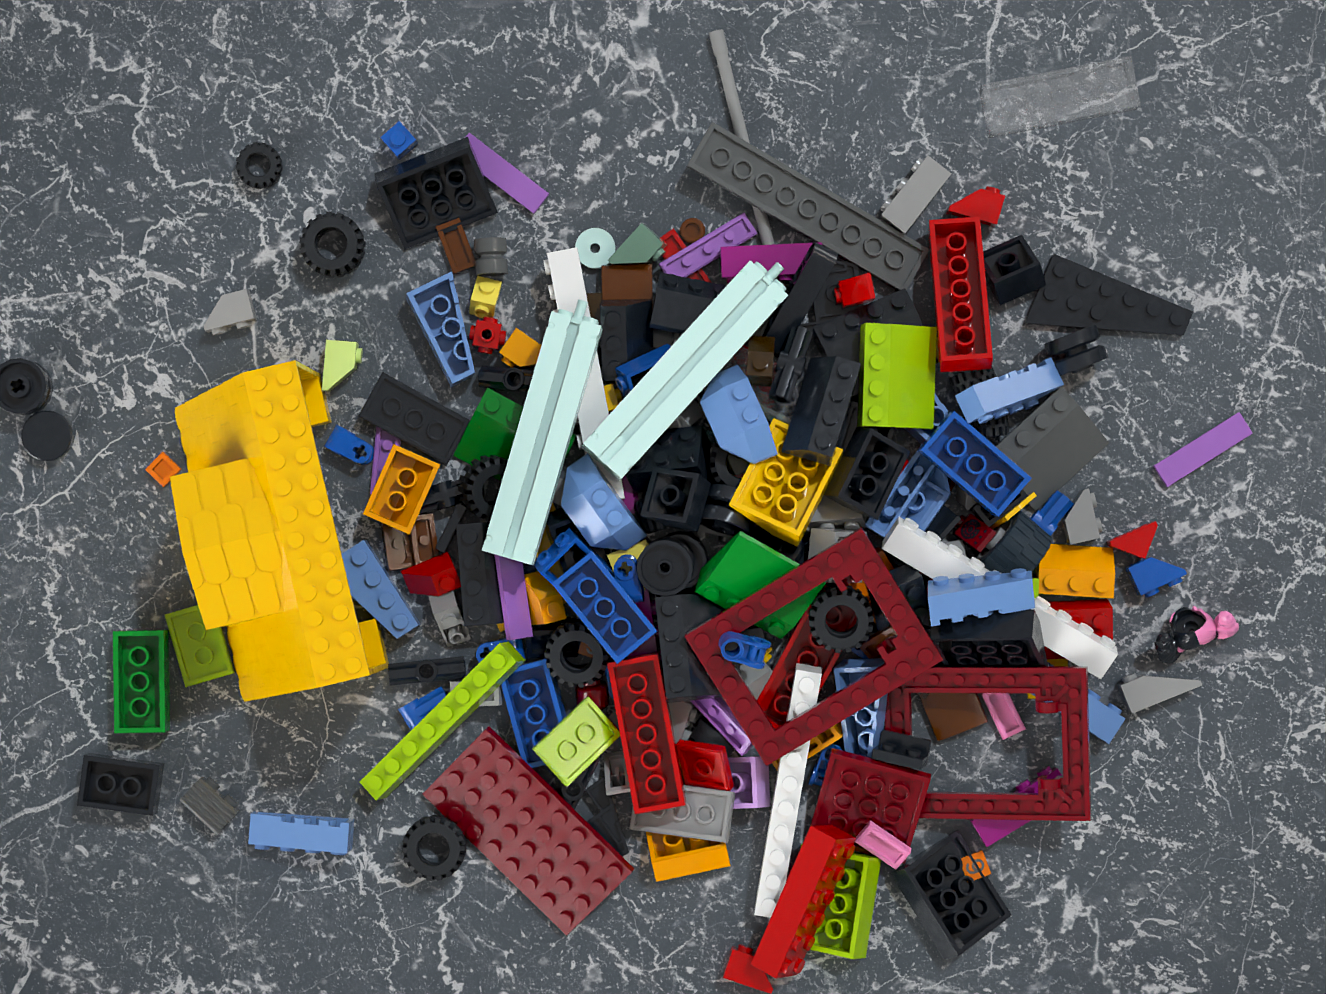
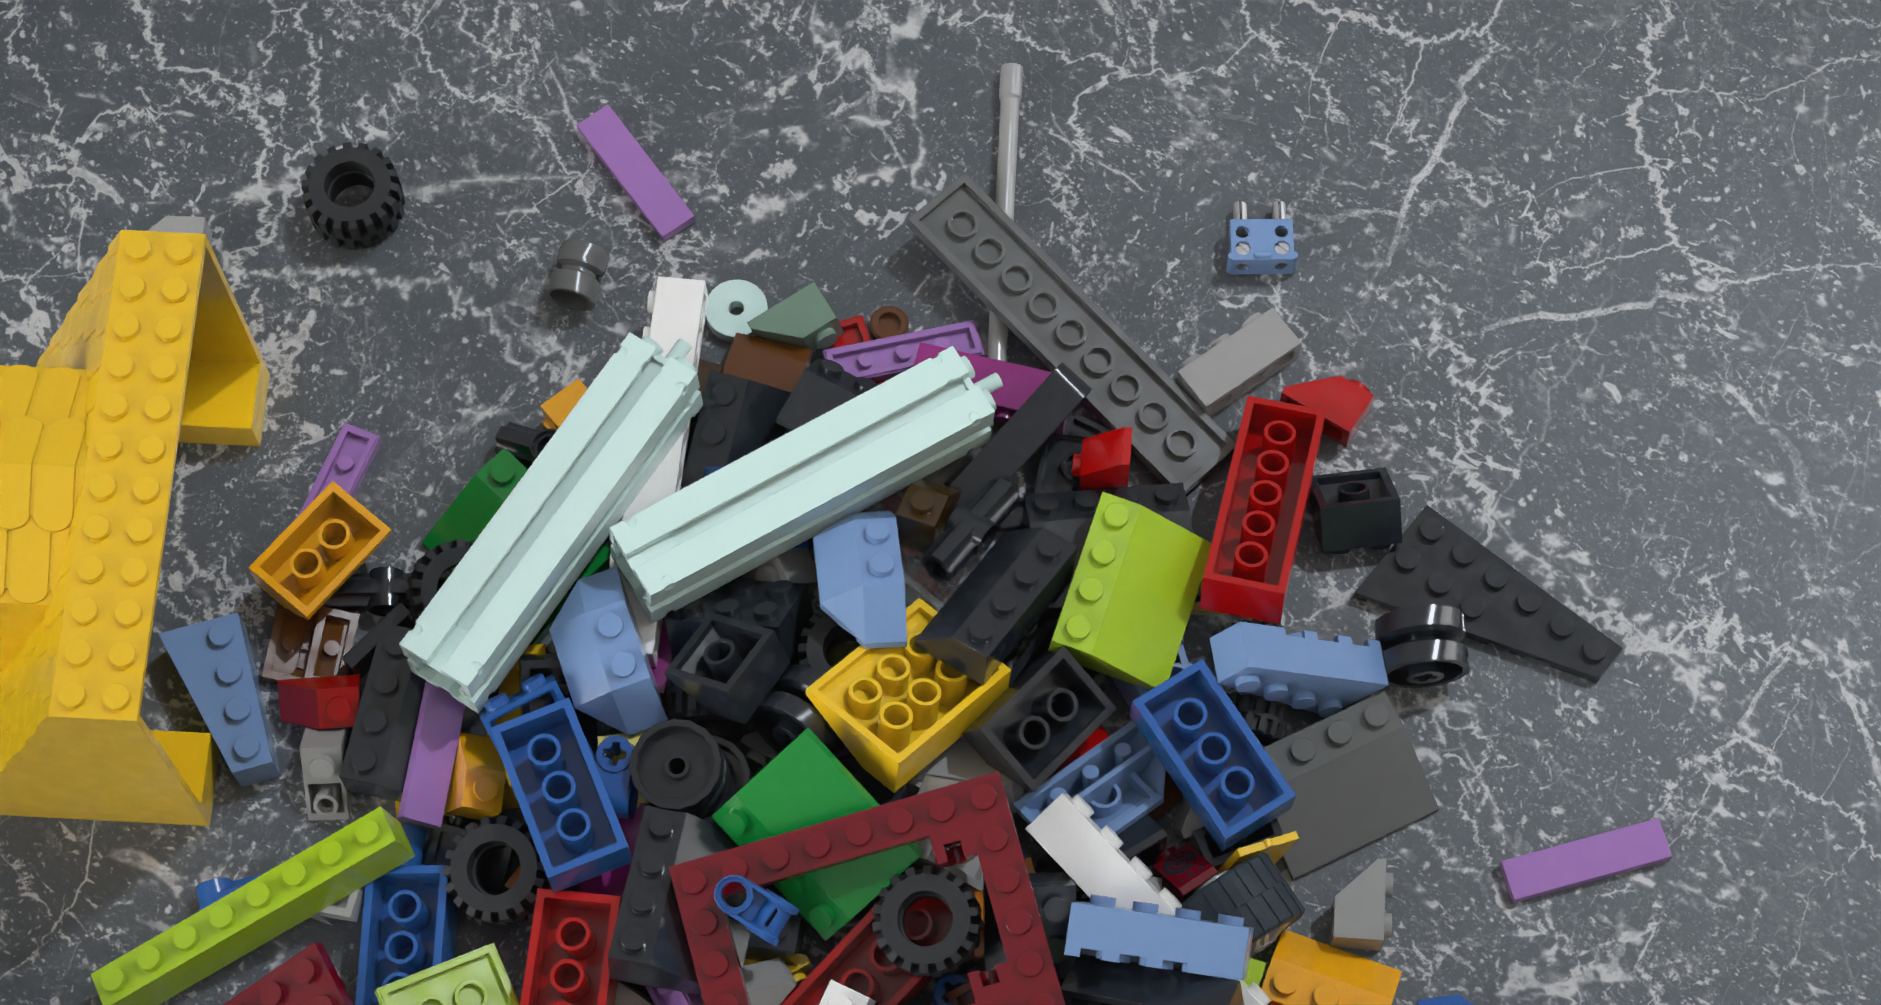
camera: 20 degrees right, 20 degrees down
(255, 150) = (285, 48): black tyre -> none
(339, 362) = (301, 361): yellowish green slope -> none
(346, 444) = (270, 480): blue piece -> none
(399, 140) = (503, 85): blue brick -> none
(410, 673) = (237, 837): black piece -> none
(414, 418) = (381, 468): black tile -> none
(435, 191) = (529, 170): black slope -> none
(441, 321) = (472, 343): medium blue wedge -> none
(456, 247) = (533, 251): reddish brown tile -> none
(484, 297) = (548, 331): light yellow bracket -> none
(487, 345) = (532, 380): red brick -> none
(596, 692) = (511, 948): dark red head -> none
(908, 112) = (1261, 244): none -> medium blue piece
(1052, 512) = (1320, 885): blue piece -> none
(1059, 97) = (1495, 284): clear brick -> none
(1135, 541) = (1438, 967): red slope -> none

